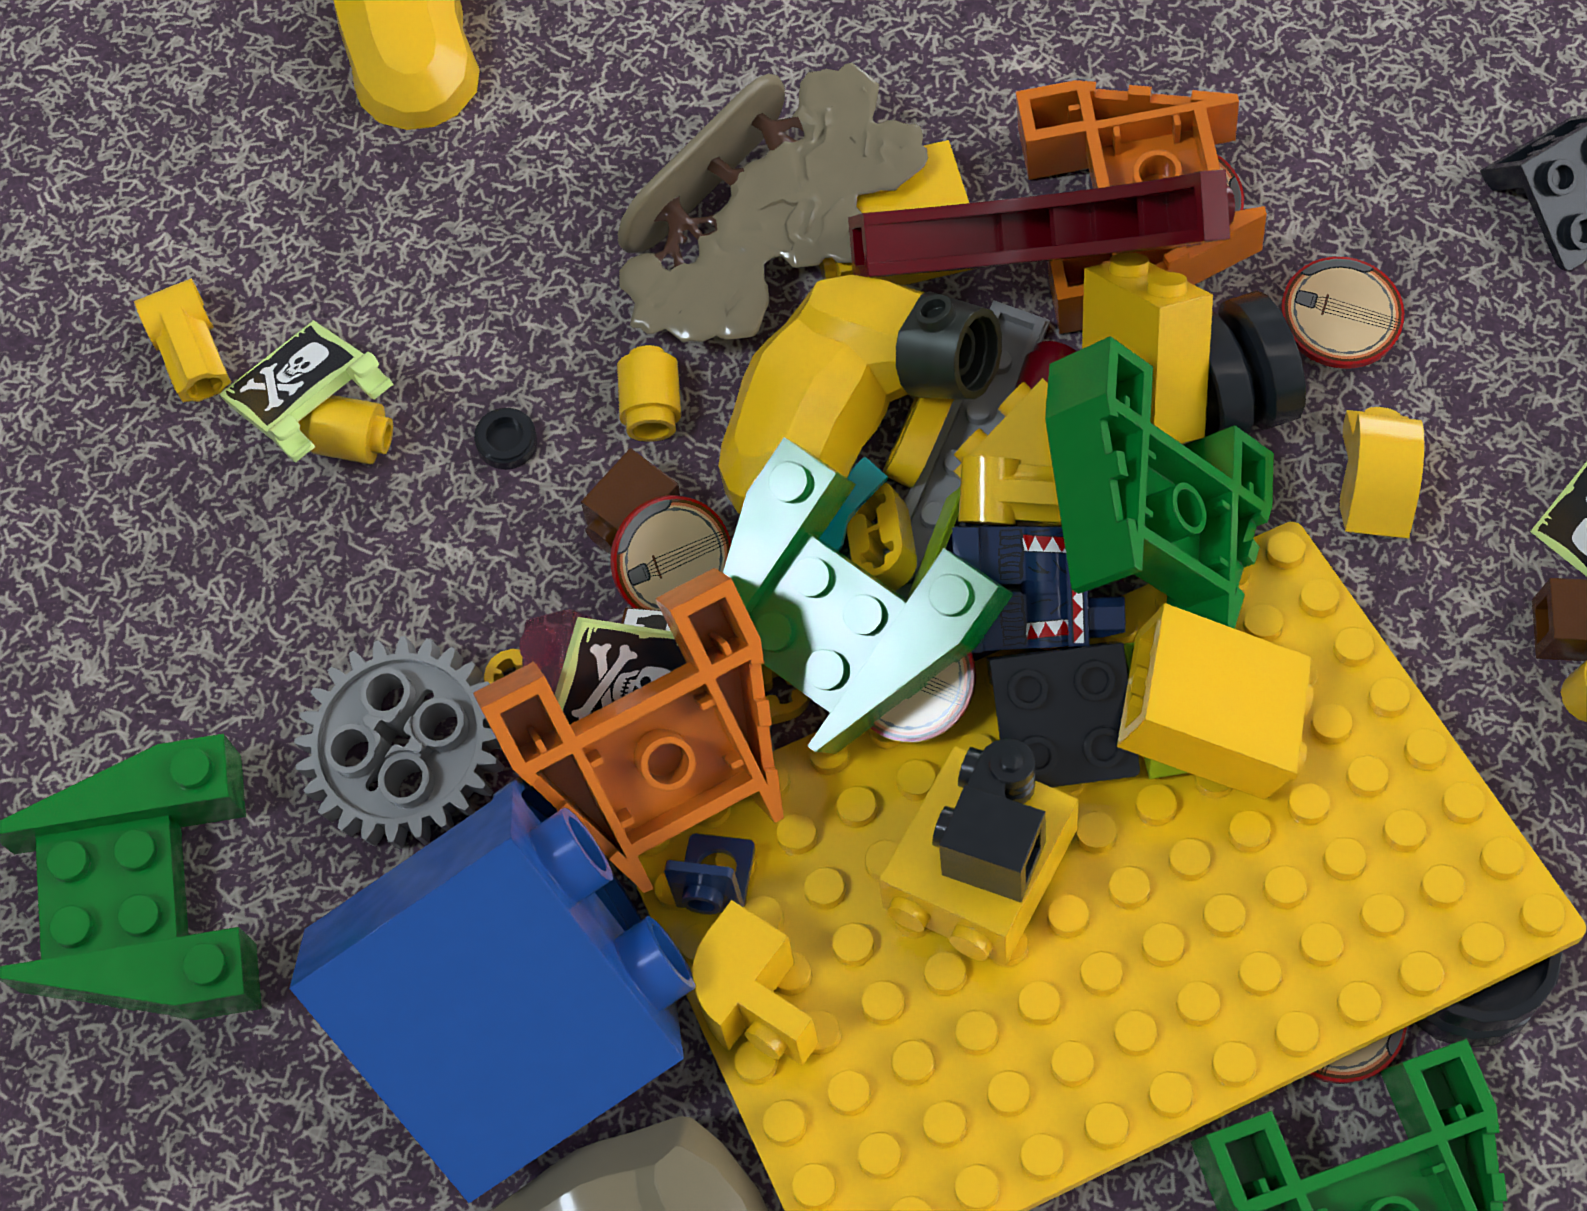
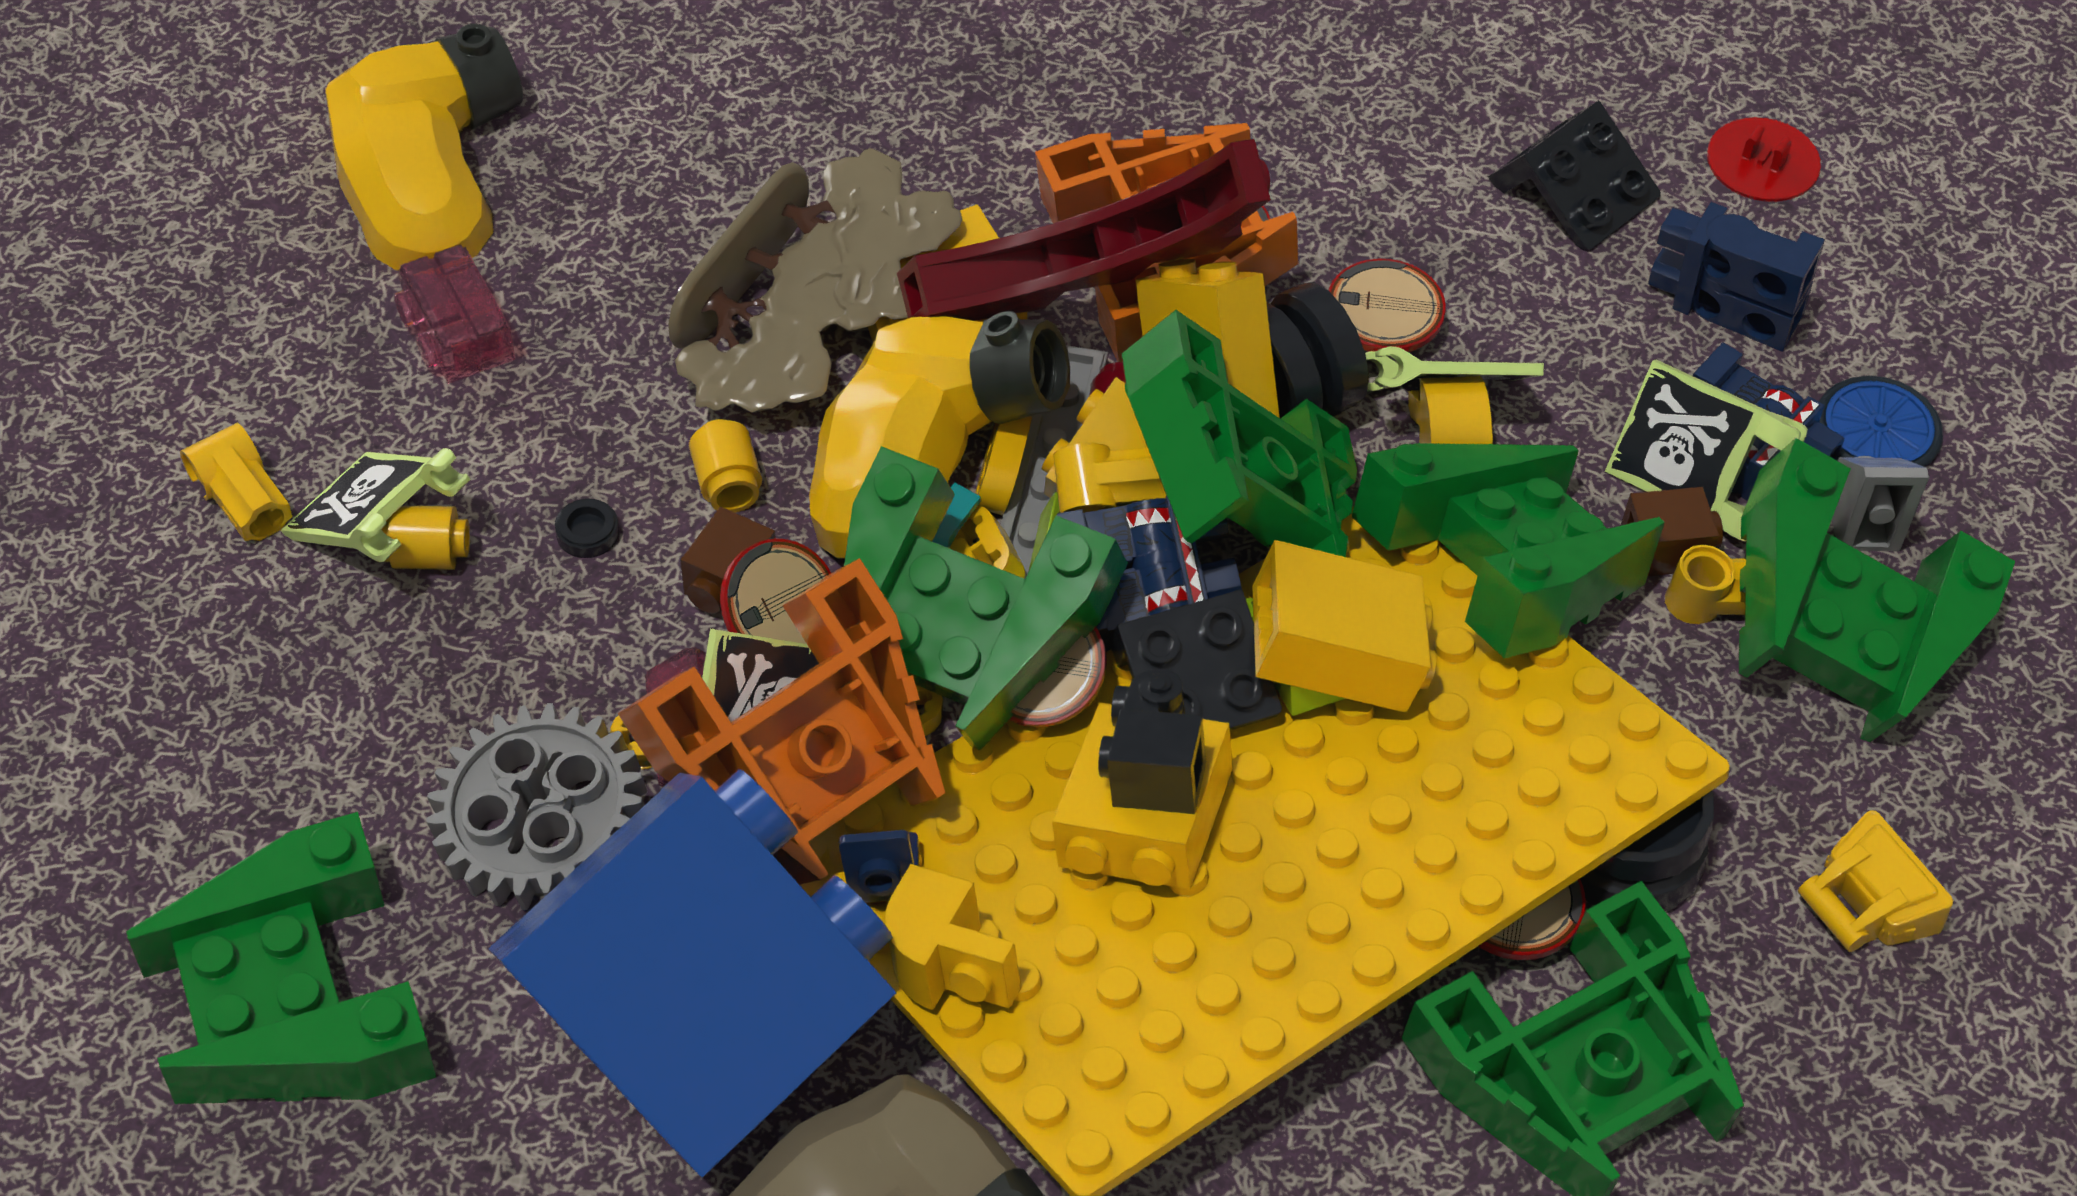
camera: 15 degrees left, 15 degrees down
(418, 183) = (454, 313): none -> clear pink brick
(1389, 404) = (1409, 367): none -> yellowish green flag
(1424, 607) = (1515, 527): none -> green wedge

